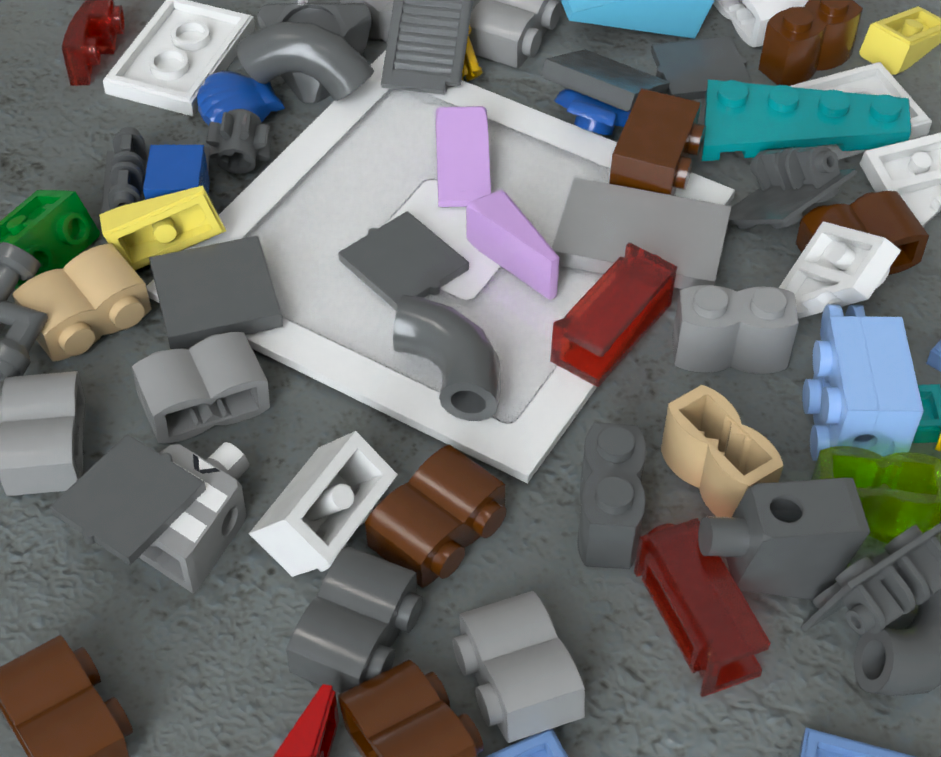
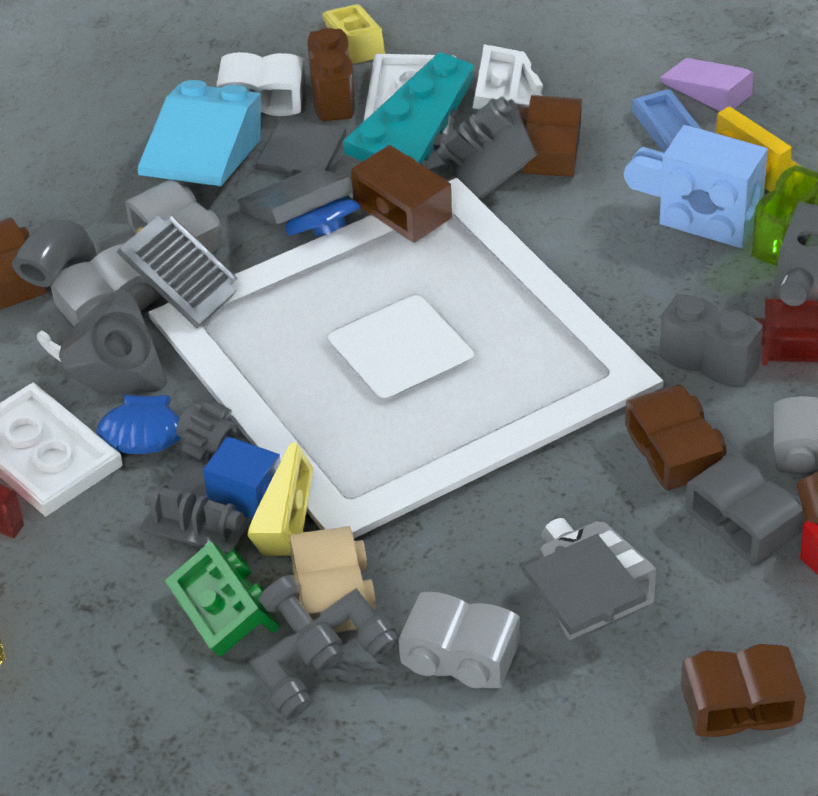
camera: 60 degrees left, 5 degrees down
(201, 386) = (468, 531): light grey brick -> none
(215, 291) = (378, 492): dark grey tile -> none
(304, 50) = (148, 344): dark grey cylinder -> none
(324, 505) = (640, 486): white brick -> none
(403, 260) = (413, 376): dark grey piece -> none
(459, 350) = (540, 367): dark grey cylinder -> none
(462, 155) = (328, 302): lavender slope -> none
(510, 240) = (453, 300): lavender slope -> none
(606, 217) = (477, 238): light grey tile -> none
(613, 315) = (557, 273): clear red window -> none
(715, 451) = (719, 271): tan brick -> none
(734, 329) = (599, 227): light grey brick -> none
(838, 268) = (598, 150): white wing -> none

